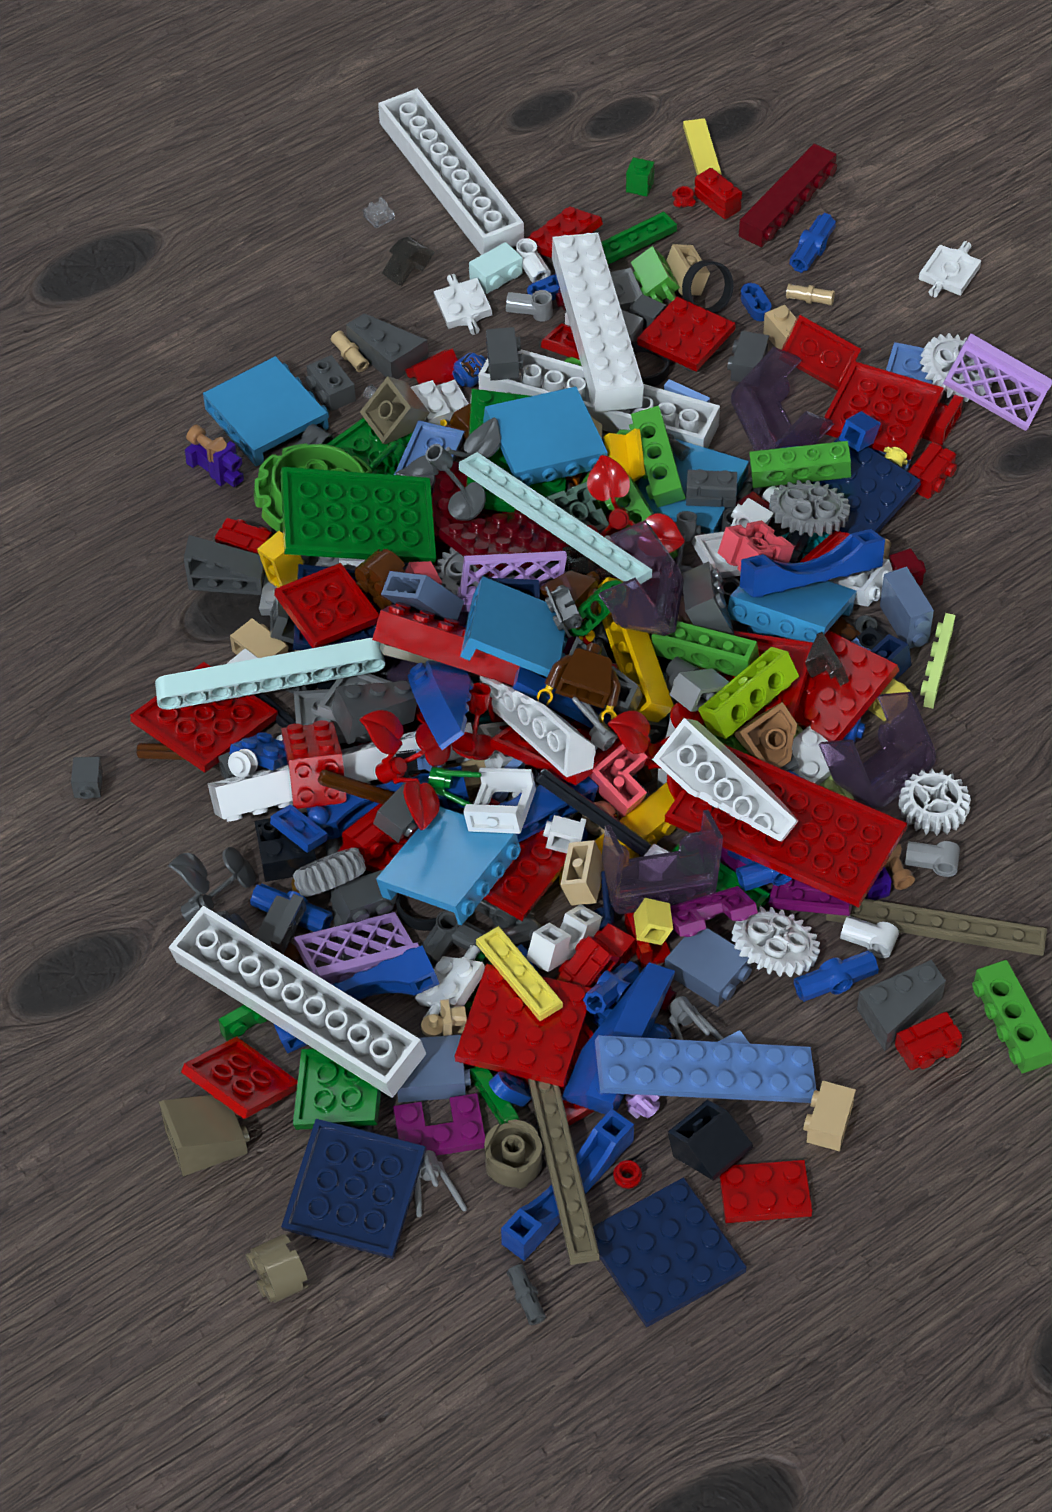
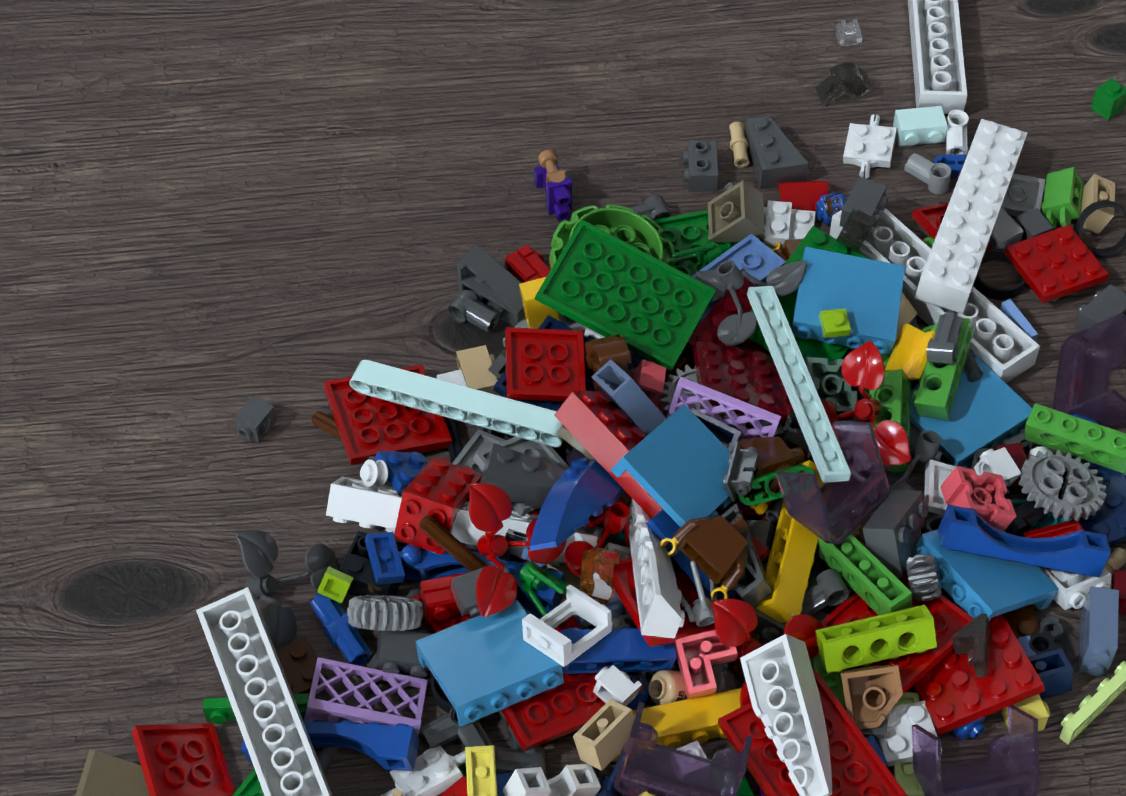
camera: 30 degrees right, 0 degrees up
(209, 596) = (468, 307): none -> dark grey piece
(264, 408) = (630, 161): dark azure panel -> none
(266, 873) = (335, 584): none -> lime plate
(281, 922) = (316, 638): dark grey panel -> none
(493, 747) = (598, 573): none -> clear orange leg
(513, 375) = (855, 230): none -> clear smoke brick
(551, 458) = (834, 323): none -> lime plate
(568, 222) = (1014, 114): red plate -> none
(592, 811) = (653, 681): black axle -> none
(638, 237) = (1067, 154): green plate -> none
(652, 435) = (945, 346): none -> dark grey piece
(696, 687) = (829, 608): light grey brick -> none
(711, 488) = (977, 421): dark grey brick -> none
(755, 626) = (923, 577): none -> flat silver gear

